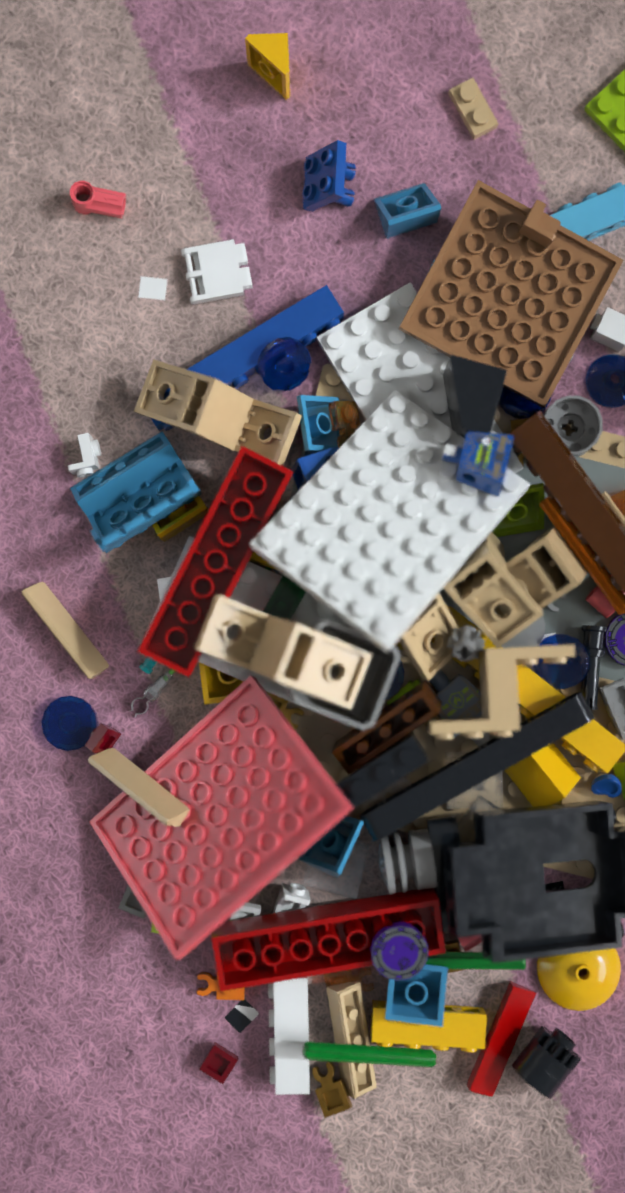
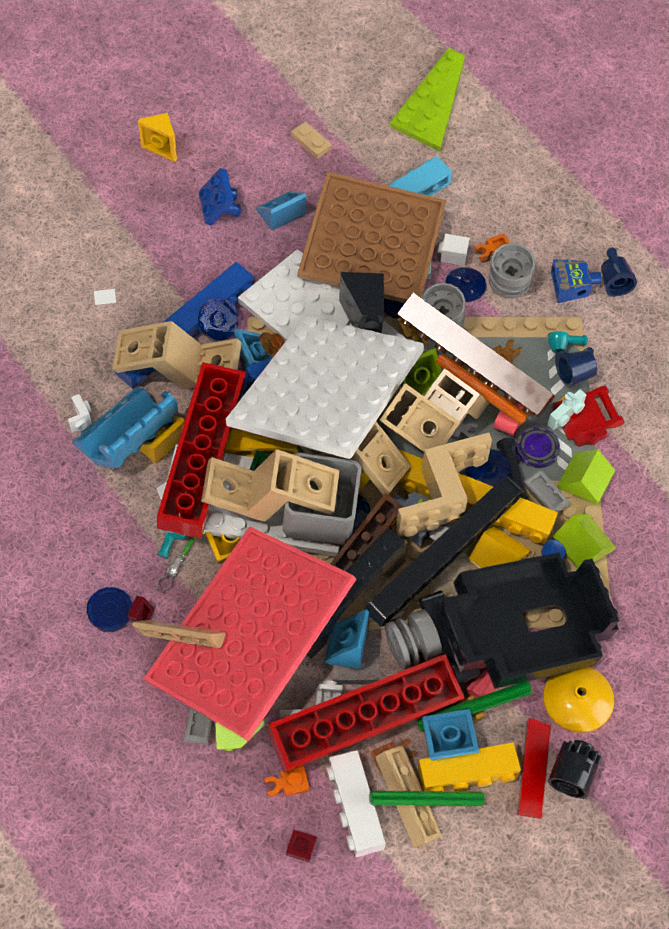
camera: 15 degrees left, 25 degrees down
(65, 630) = (90, 541): tan slope -> none
(100, 201) = (45, 247): coral piece -> none
(217, 271) = (152, 273): white plate -> none
(241, 1015) = (310, 806): black sticker -> none
(332, 1094) = (404, 846): pearl gold plate -> none
(399, 951) = (426, 700): tile -> none
(466, 643) = (404, 461): light grey gear -> none
(481, 460) = (382, 332): blue torso -> none
(539, 225) = (378, 189): medium nougat panel -> none

